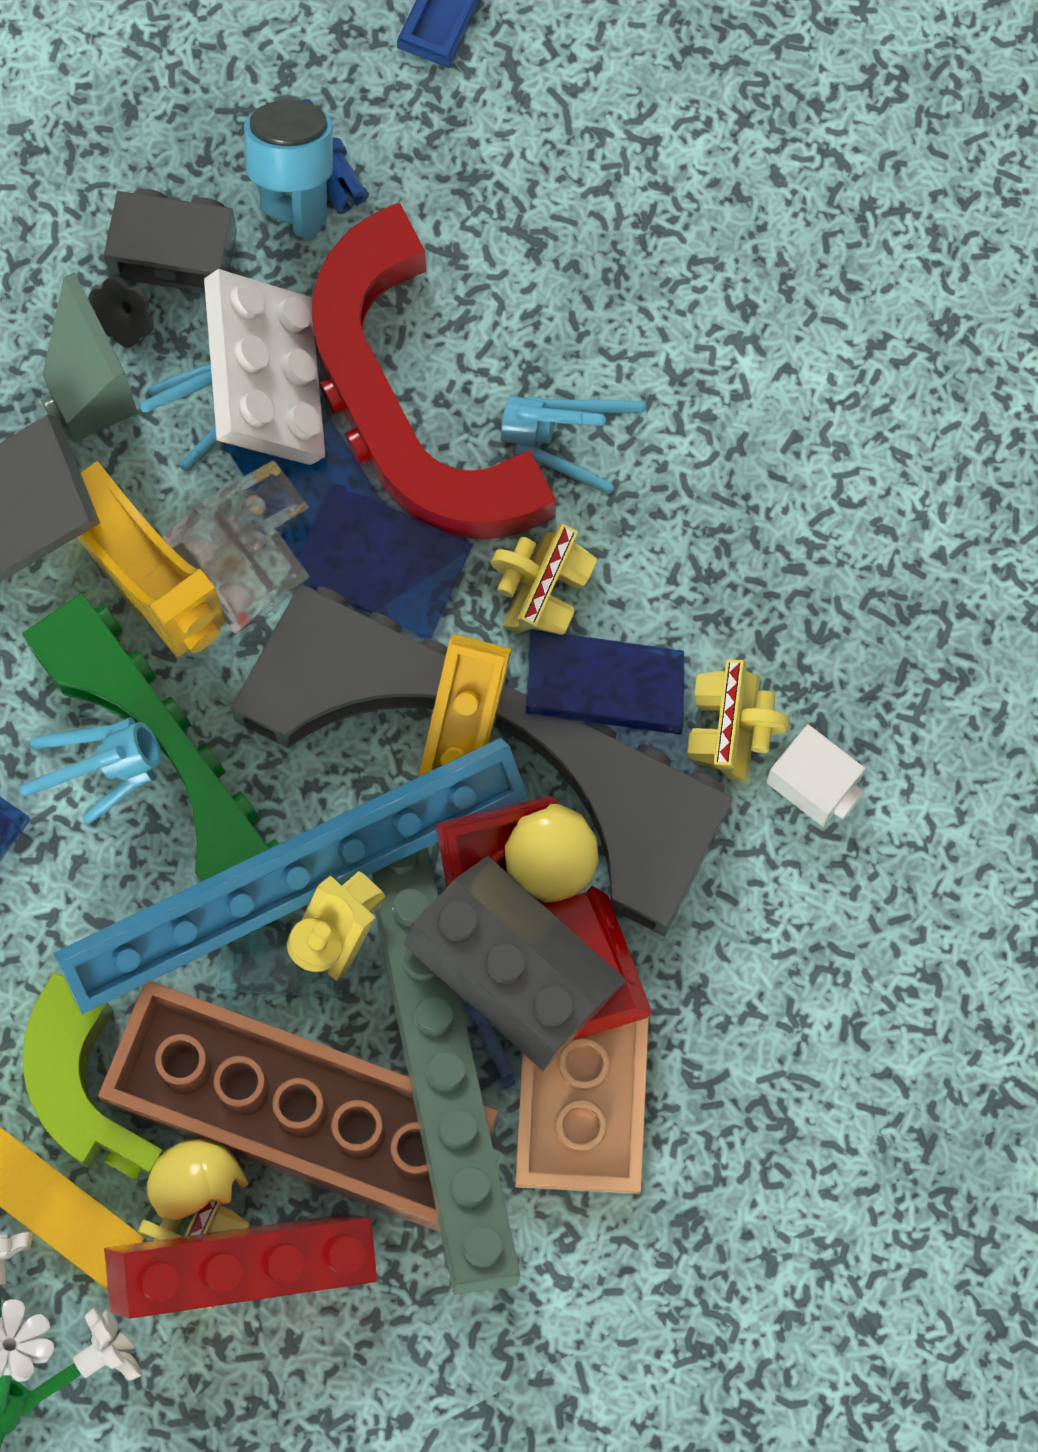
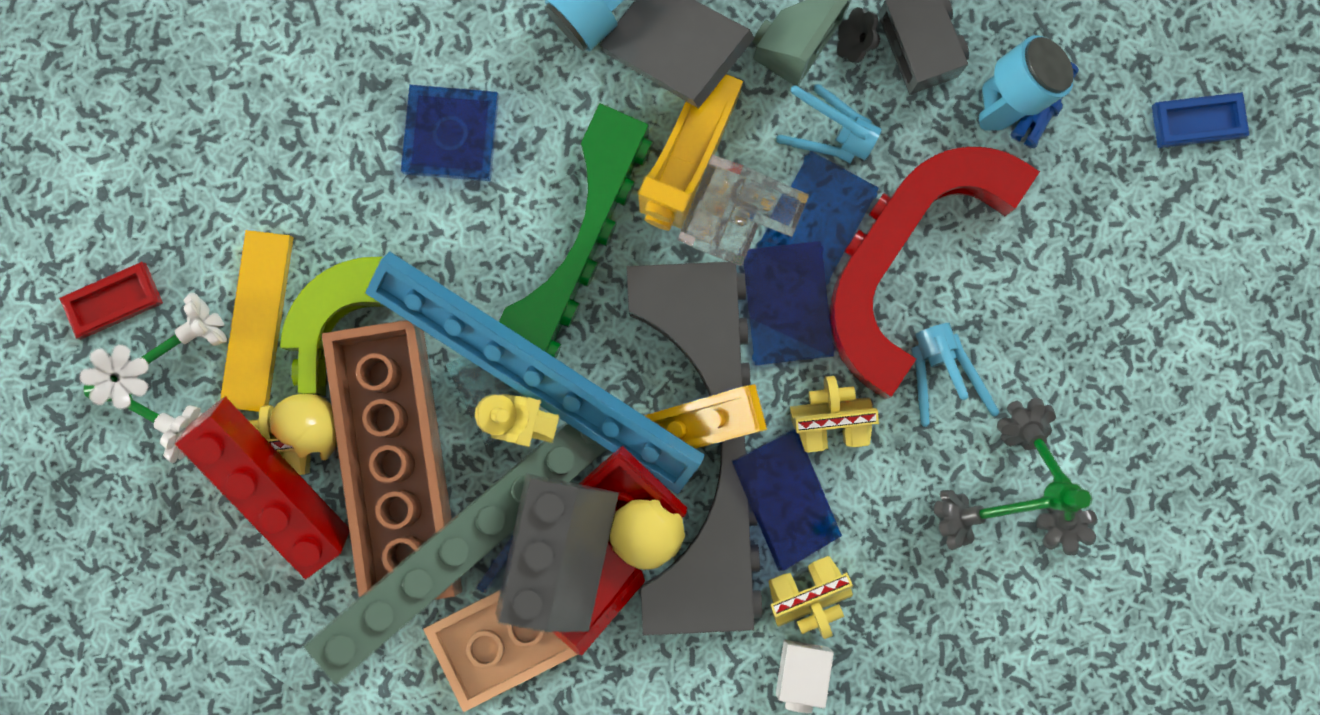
camera: 60 degrees right, 10 degrees up
(126, 753) = (557, 217): medium azure plant -> none
(264, 368) = (869, 150): white plate -> none
(808, 400) = (1061, 497): none -> dark grey plant

